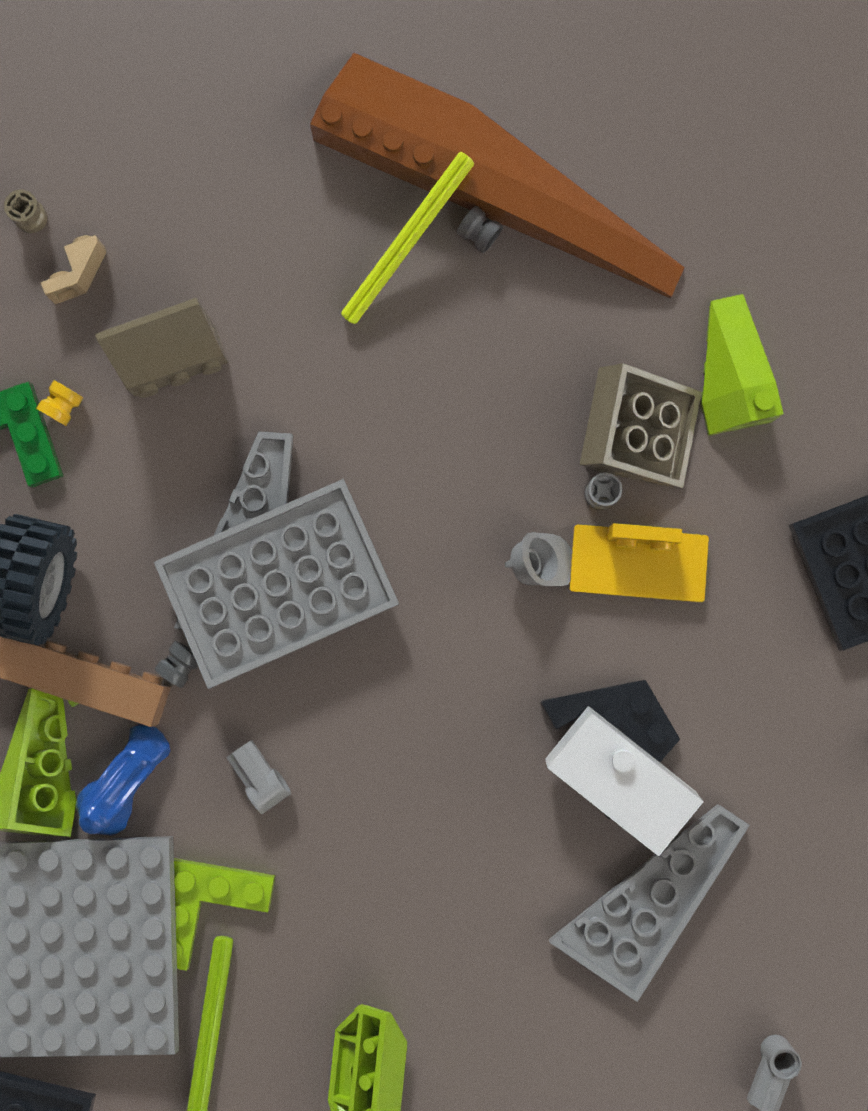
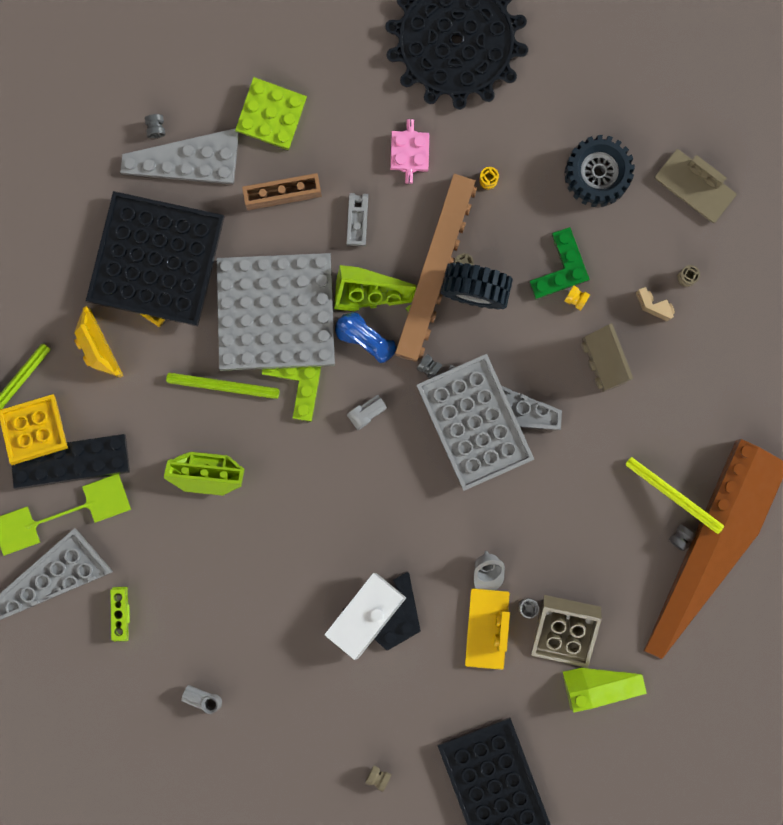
camera: 90 degrees right, 0 degrees up
(642, 917) = (288, 627): light grey wing -> none

